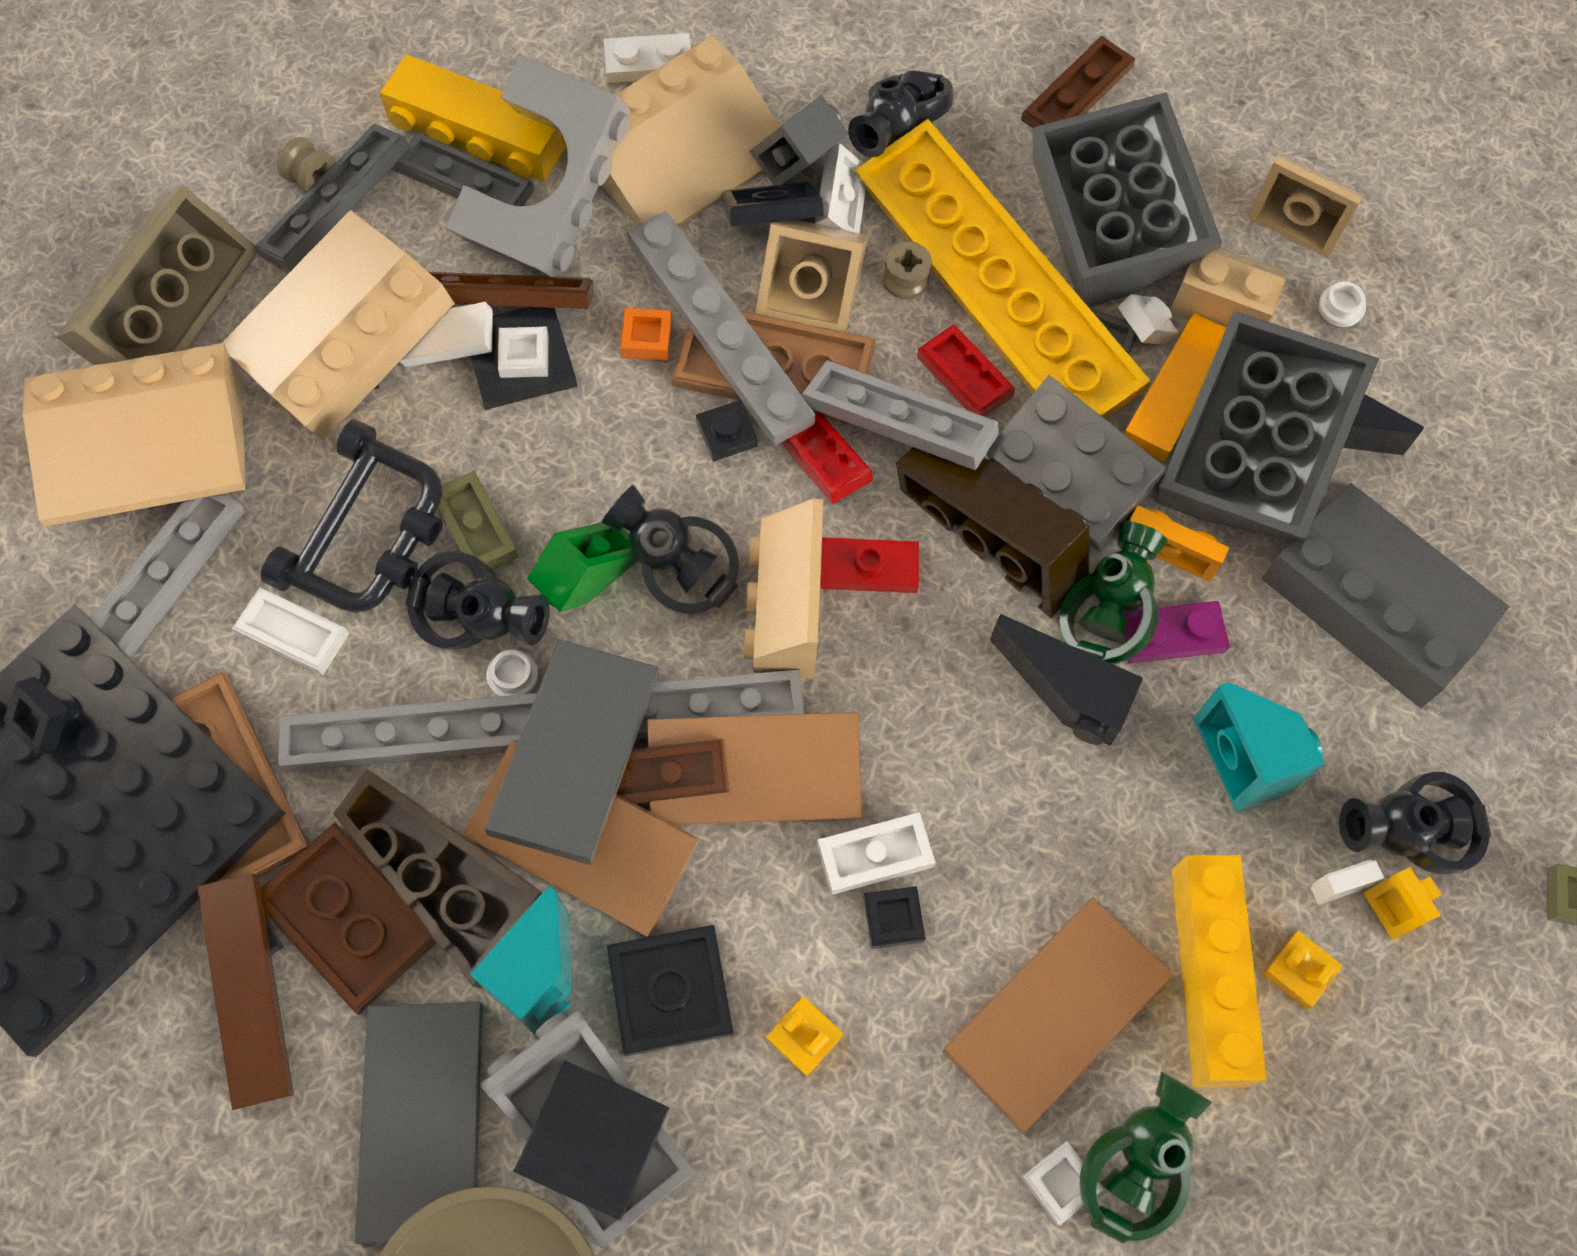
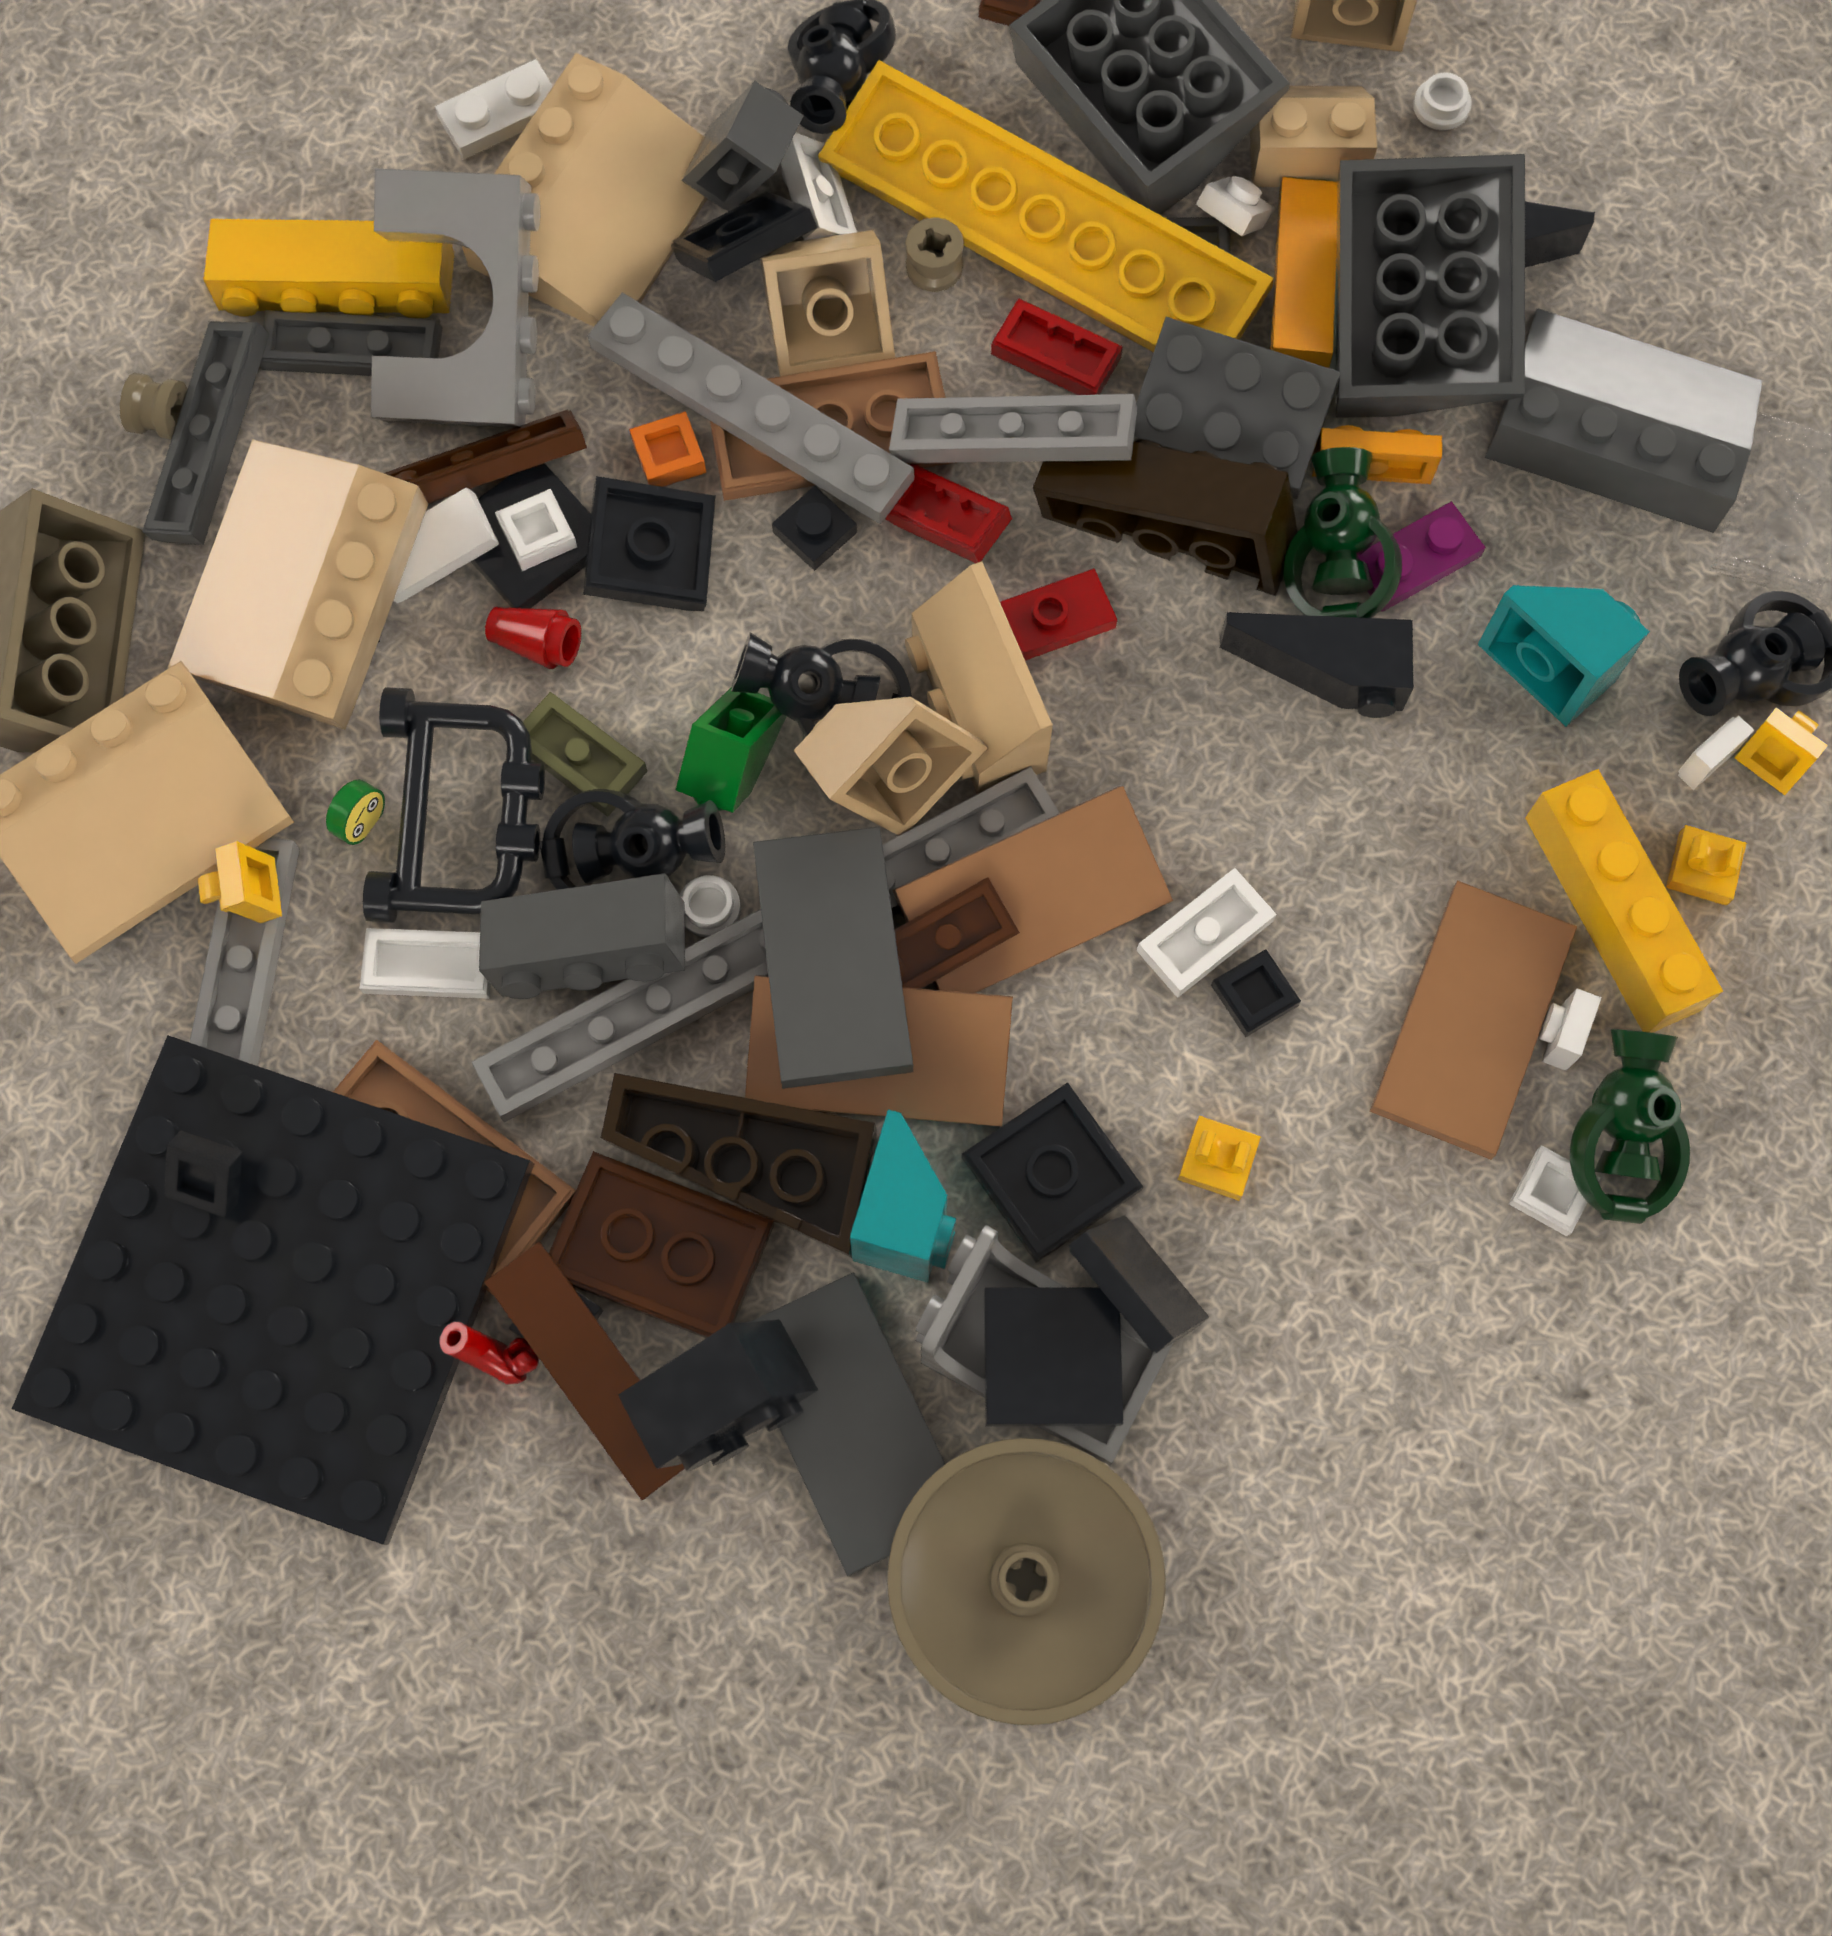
camera: 20 degrees left, 5 degrees up
(177, 941) = (488, 1354): none -> red arm
(183, 517) = (243, 883): none -> yellow tile
(294, 499) = (354, 811): none -> tile
(318, 1054) = (718, 1394): none -> black brick
(403, 658) = (582, 936): none -> dark grey brick
(487, 426) = (537, 634): none -> red cone
(599, 395) = (649, 544): none -> black tile
(684, 619) = (887, 758): none -> tan slope
(686, 1110) = (1138, 1283): none -> black tile
(1129, 1054) = (1568, 1028): none -> white plate

